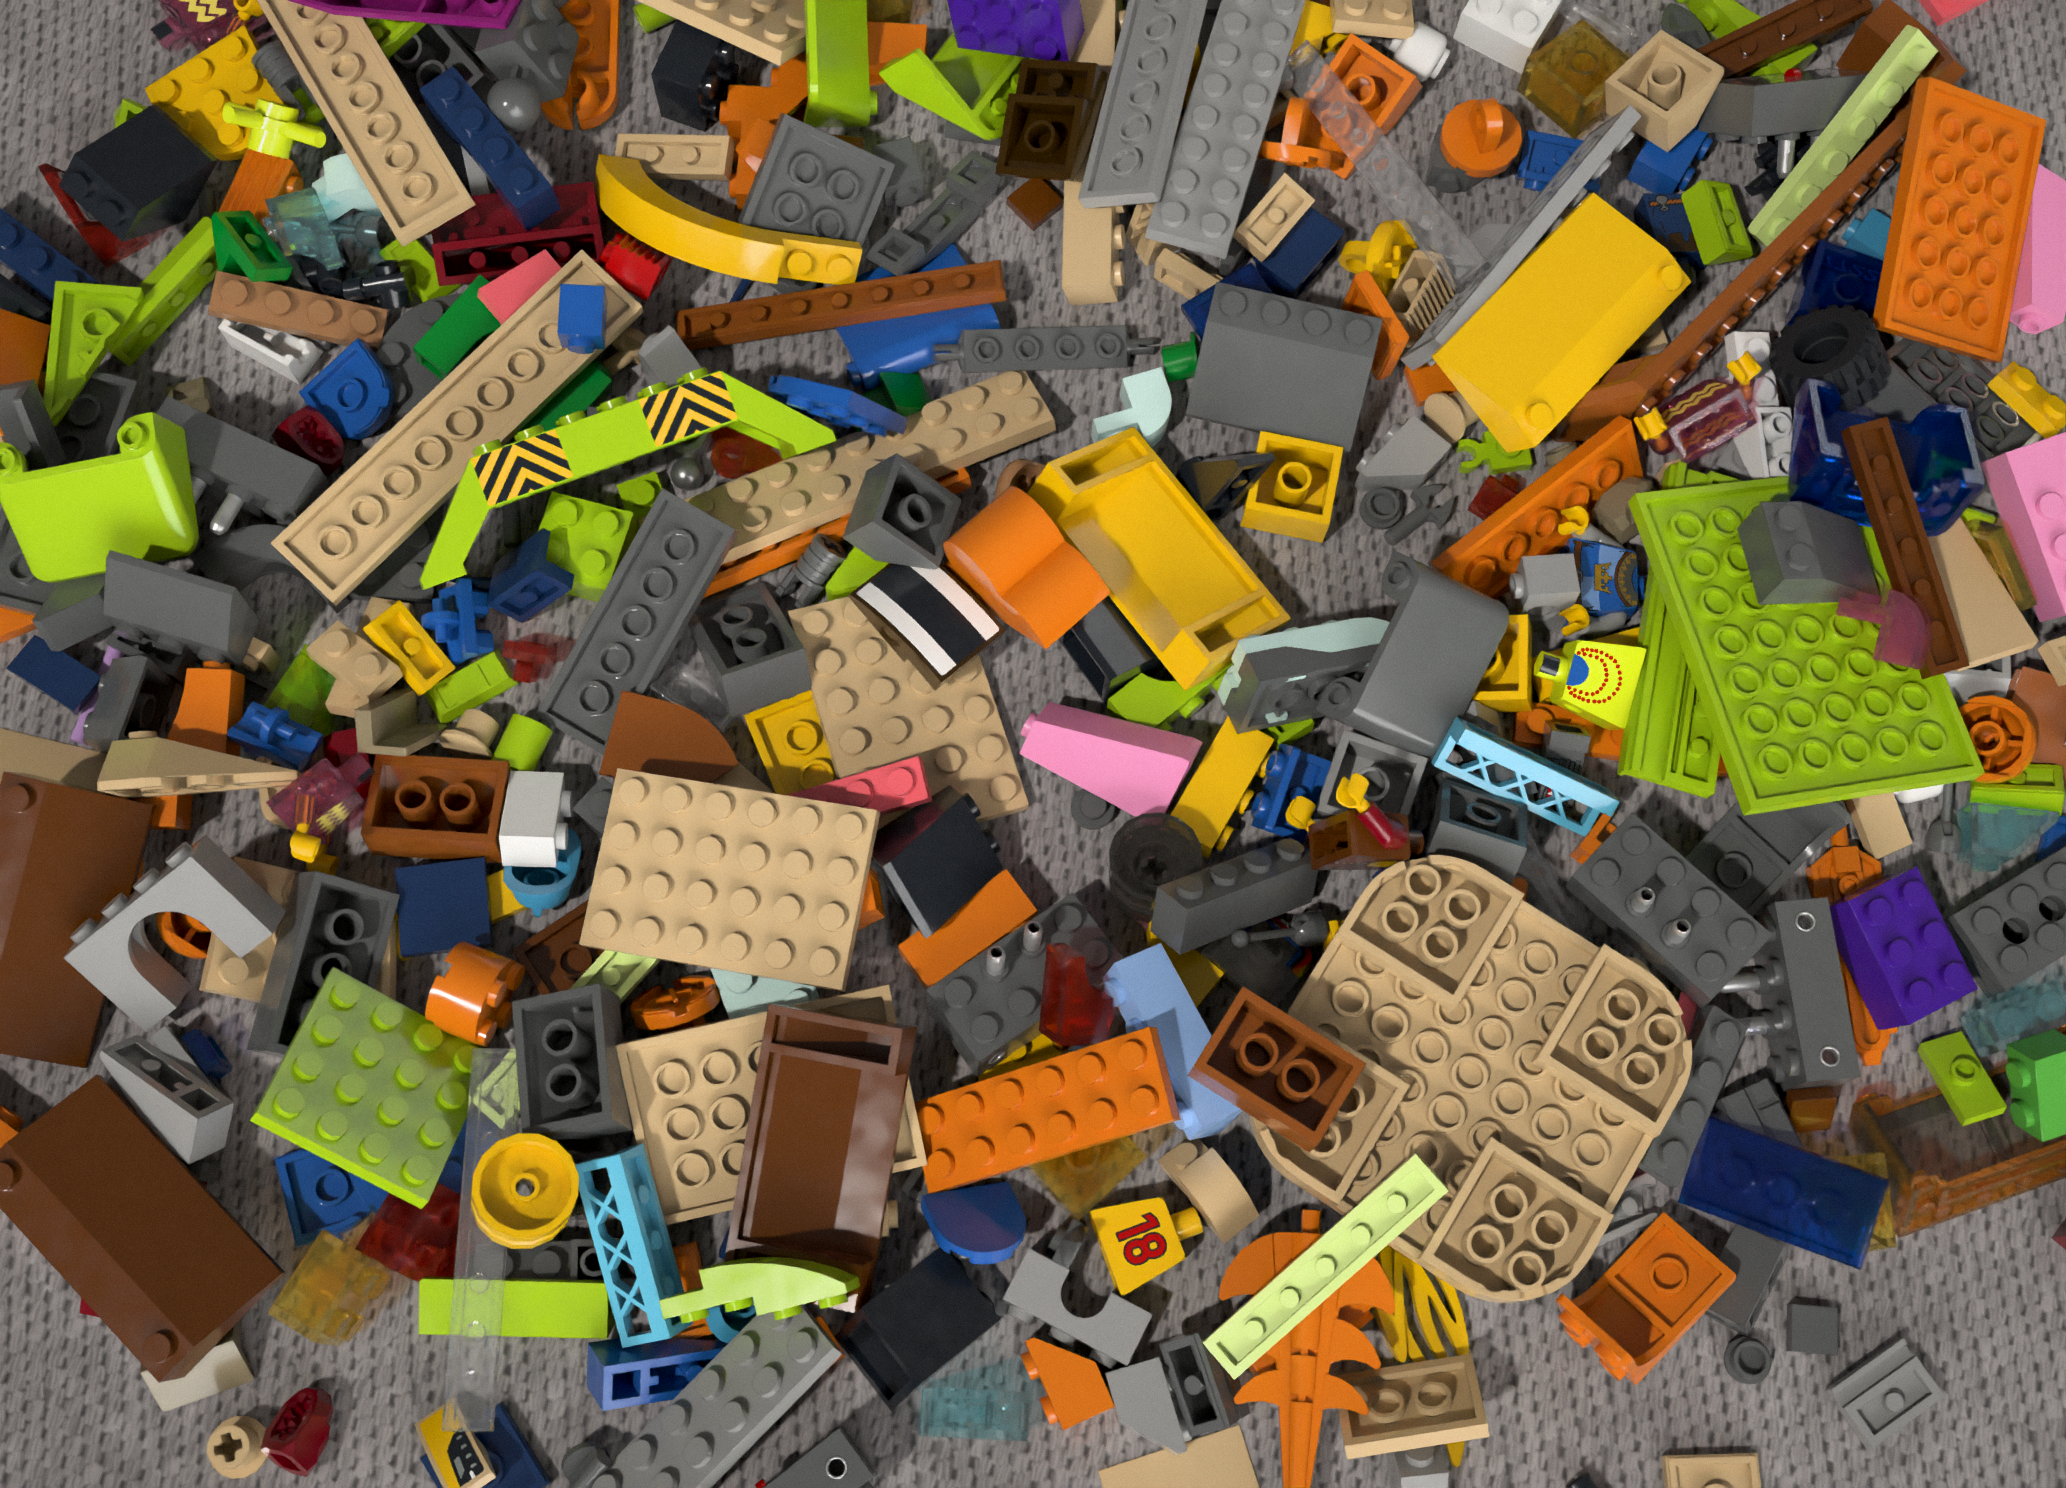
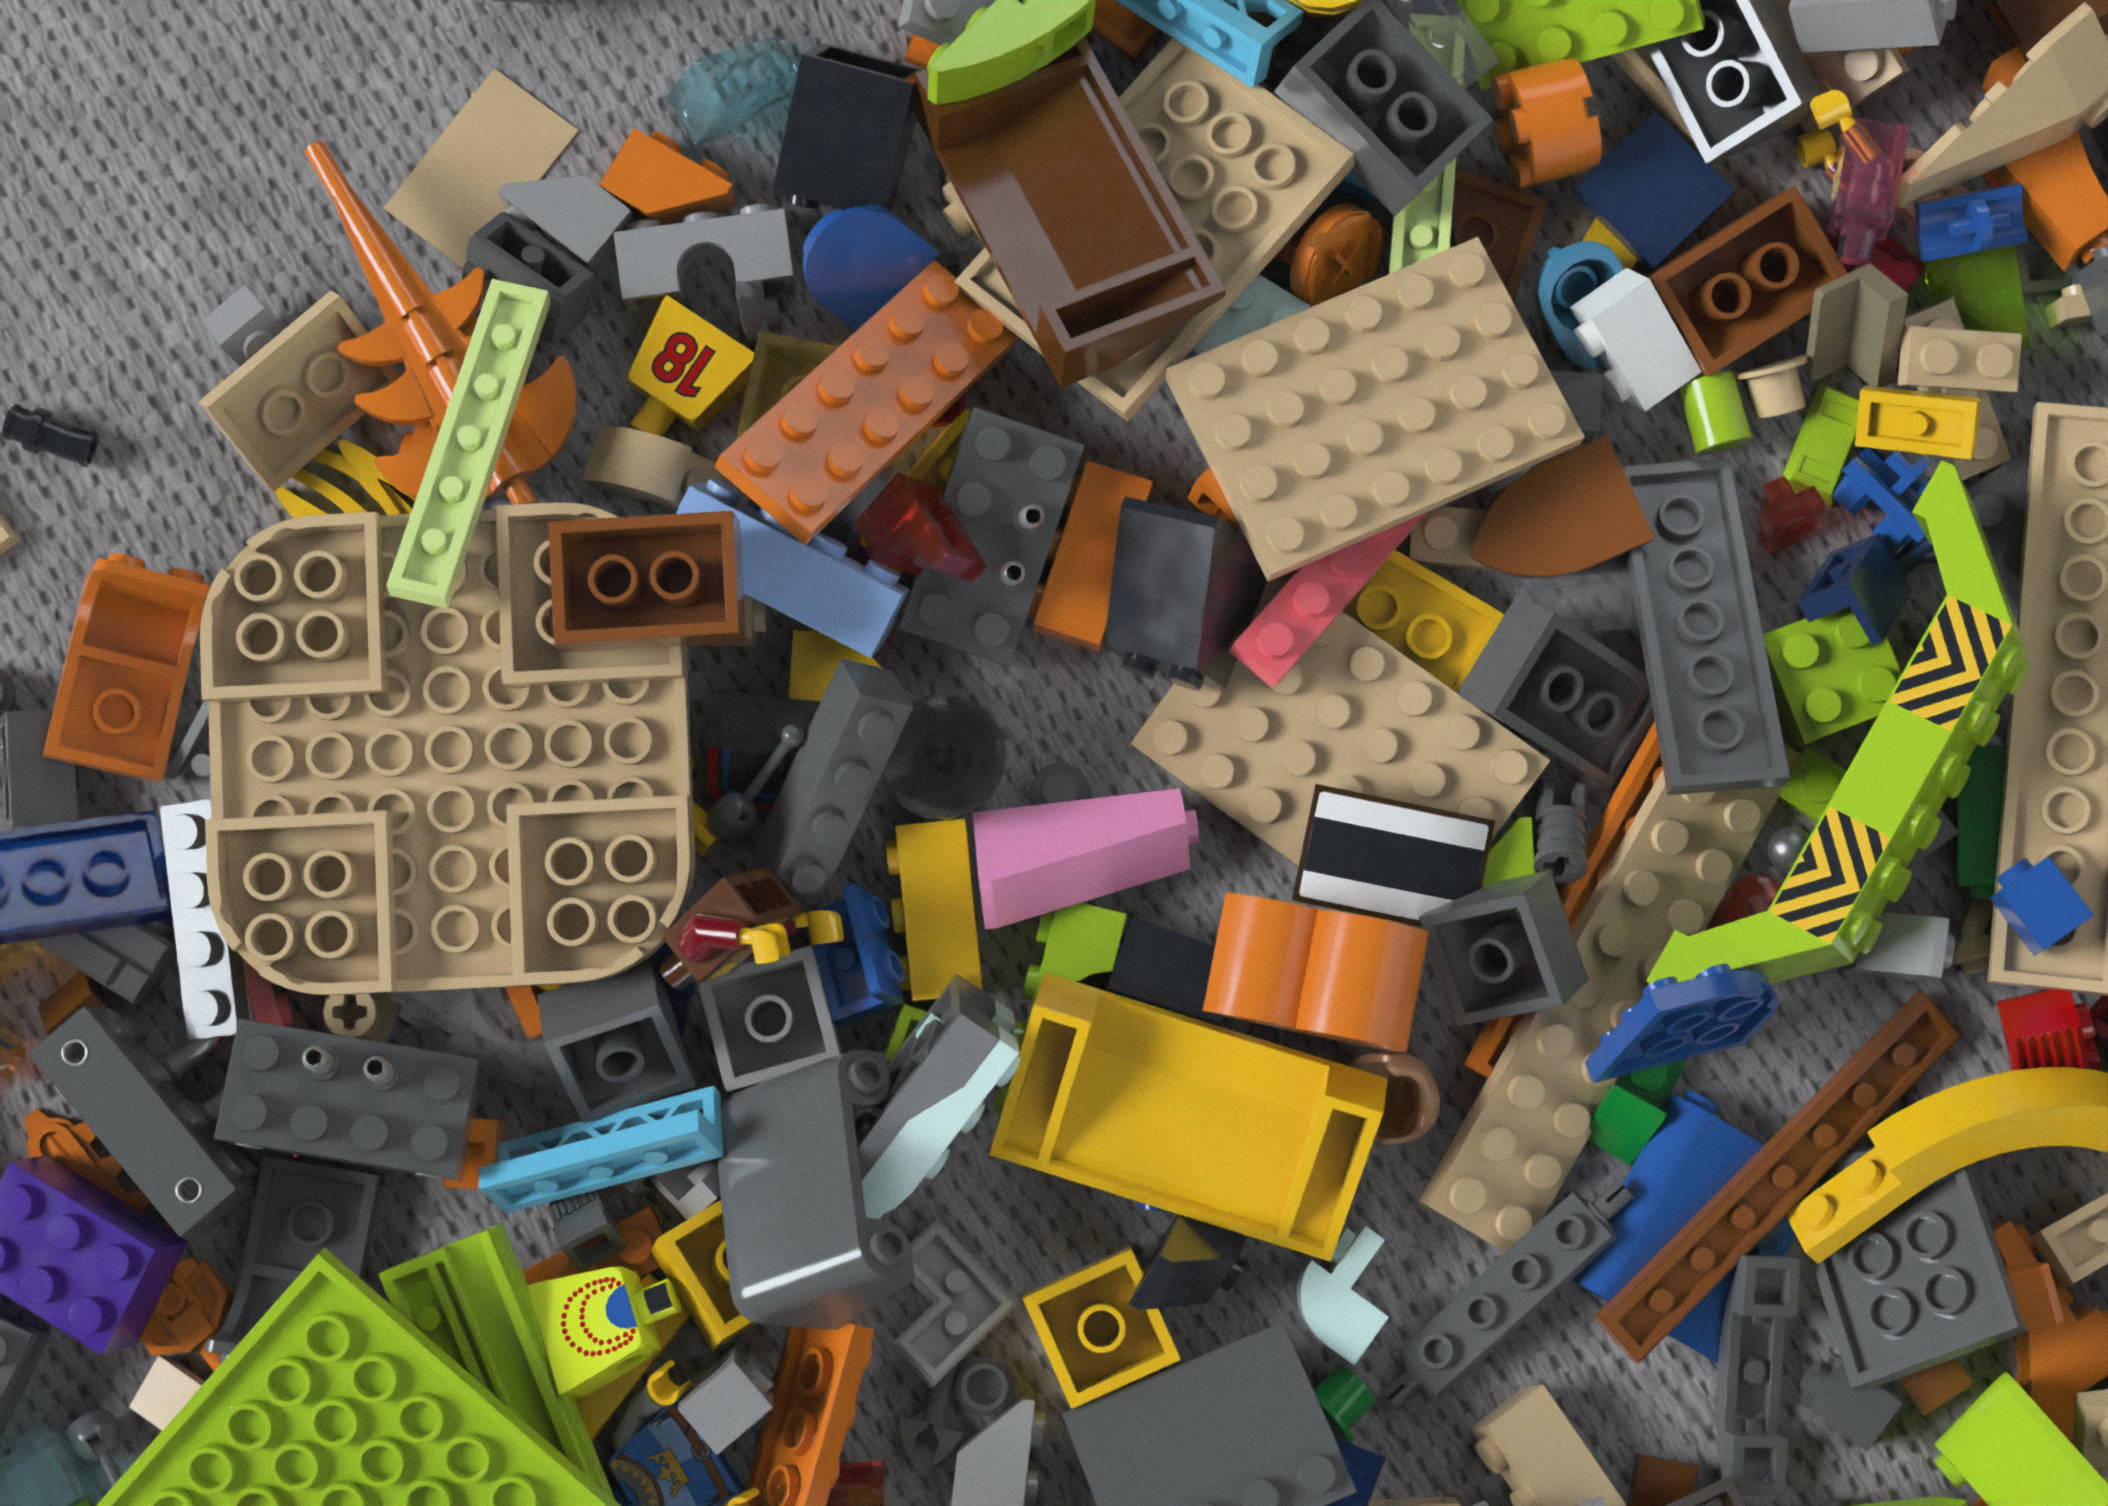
camera: 150 degrees right, 10 degrees up
(1363, 558) = (963, 1306): none -> light grey tile

